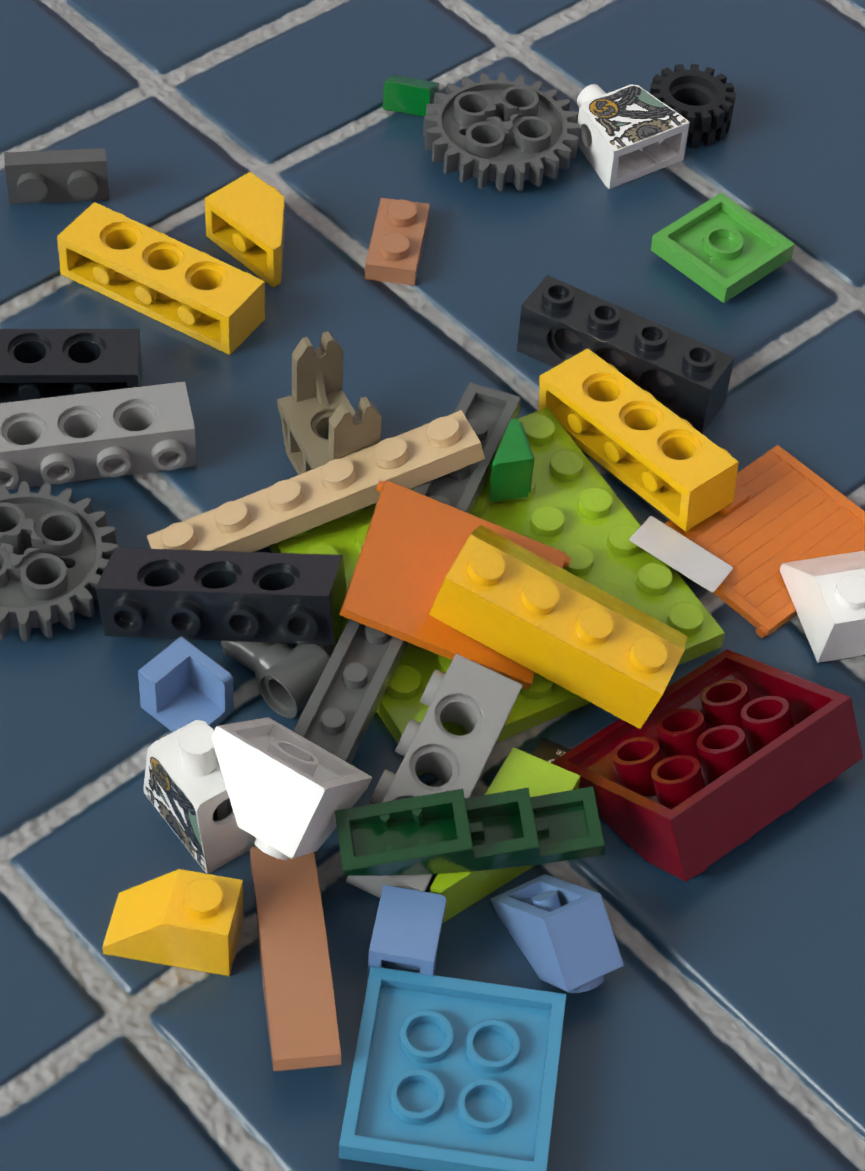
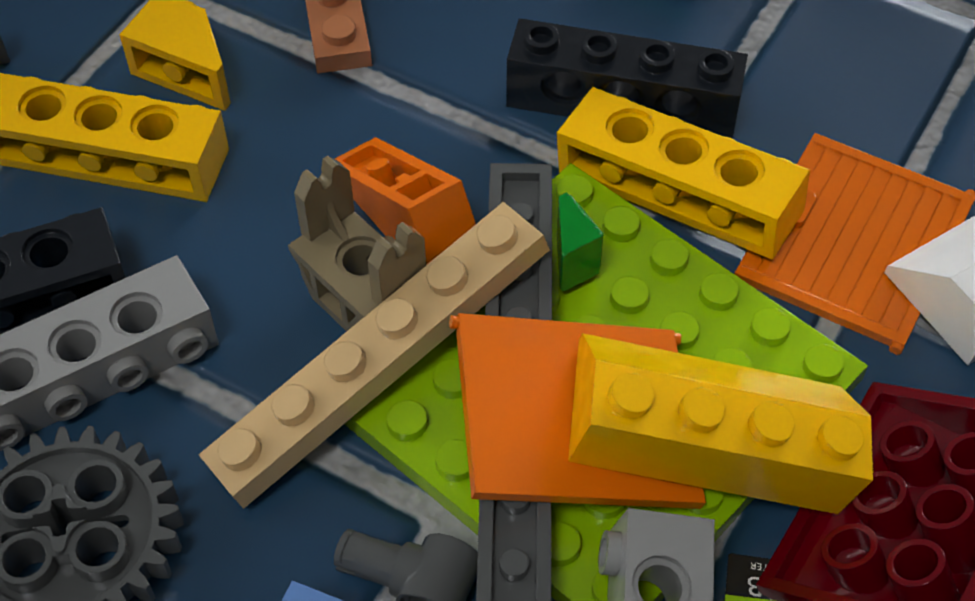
camera: 15 degrees left, 5 degrees up
(222, 595) = (318, 510): black brick -> none
(393, 385) = (402, 188): none -> orange slope
(681, 554) = (783, 288): white sticker -> none

